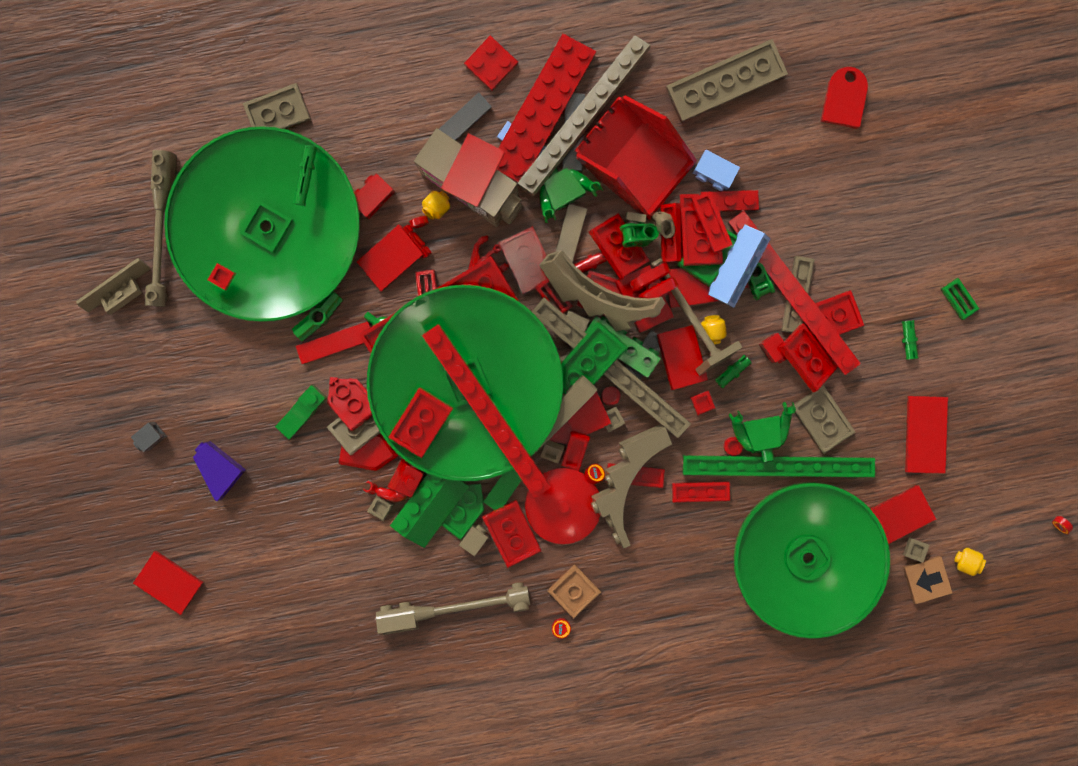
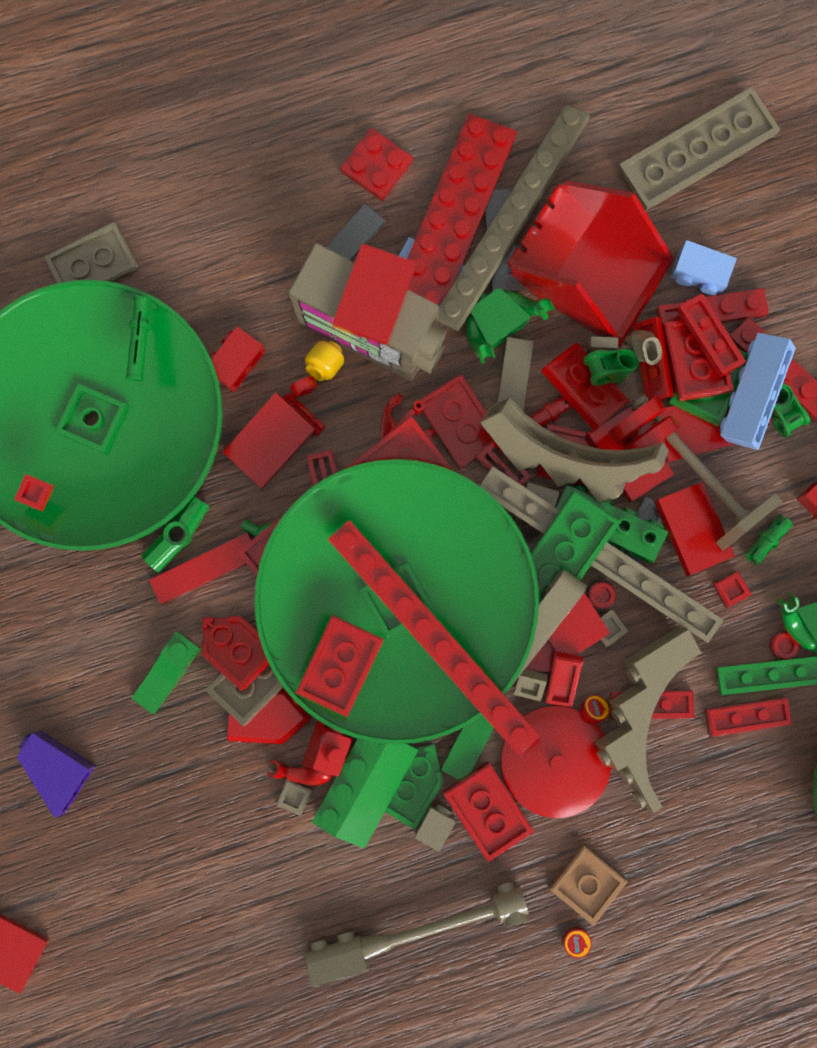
camera: 10 degrees left, 5 degrees down
(715, 328) = (736, 481): yellow head -> none

